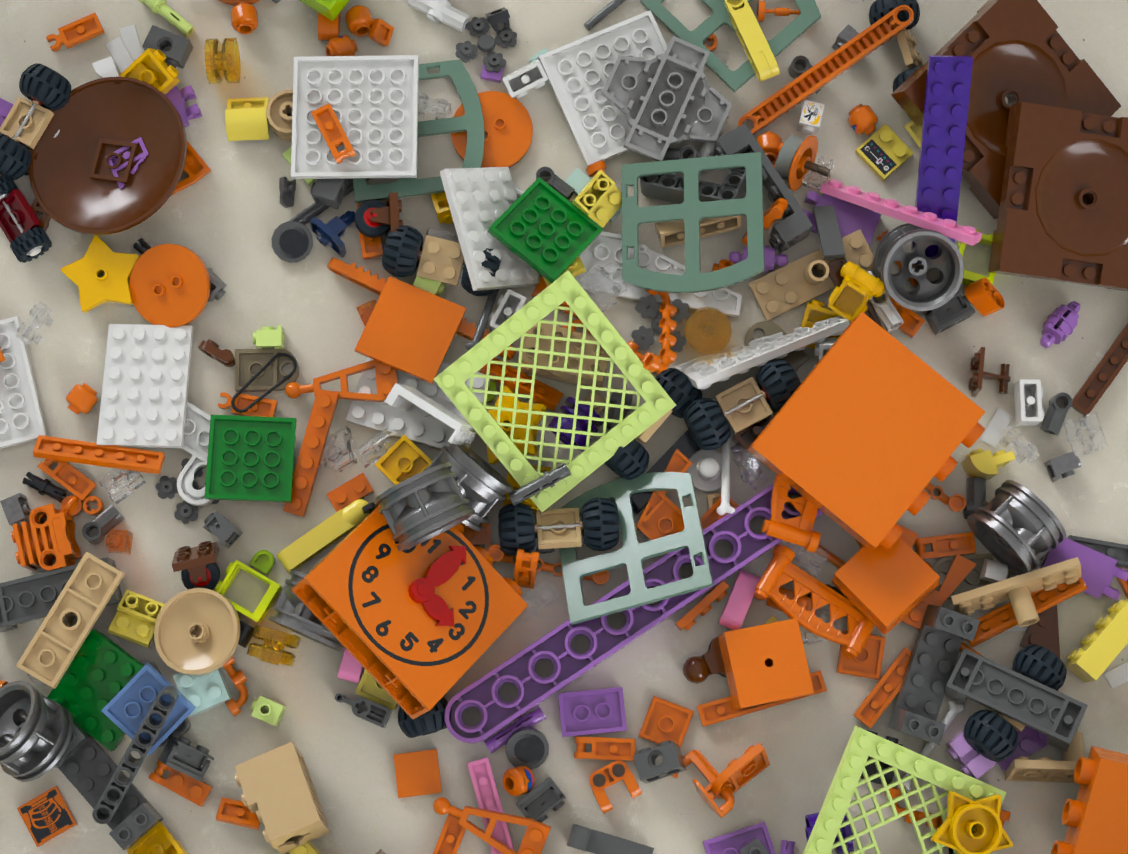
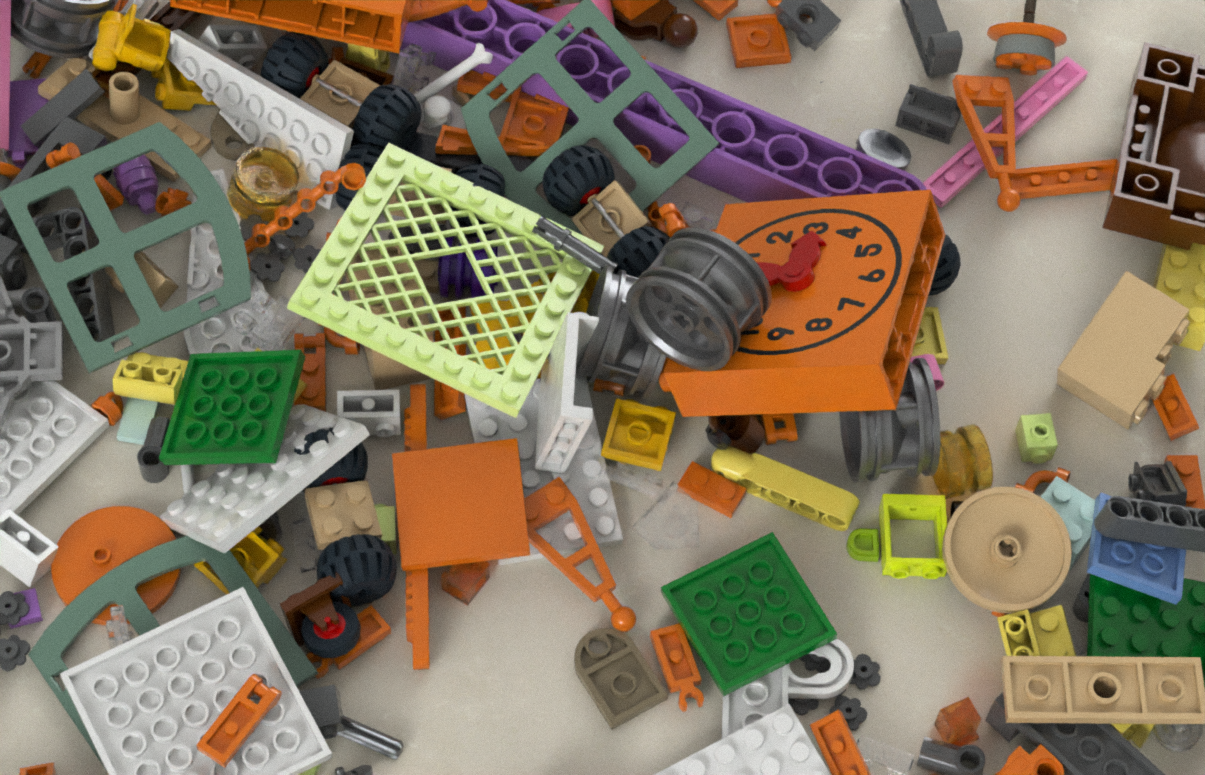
camera: 120 degrees left, 20 degrees down
(198, 565) = (920, 609): reddish brown plate -> none
(211, 349) = (631, 730): reddish brown plate -> none
(222, 529) = (859, 598): dark grey hinge -> none
(269, 337) = (571, 686): yellowish green brick -> none
(270, 390) = (634, 674): black piece -> none
(292, 241) = (418, 730): tile -> none
(312, 451) = (677, 552): orange plate -> none
(330, 233) = (374, 679): dark blue piece -> none
(368, 715) = (958, 333): dark grey piece -> none
(417, 773) = (990, 251): orange tile -> none
(483, 320) = (435, 417): dark grey piece -> none
(518, 780) = (925, 140): orange head -> none
(592, 712) = (798, 102): medium lavender plate -> none
(605, 748) = (827, 81): orange plate -> none
(611, 779) = (857, 63): orange piece -> none

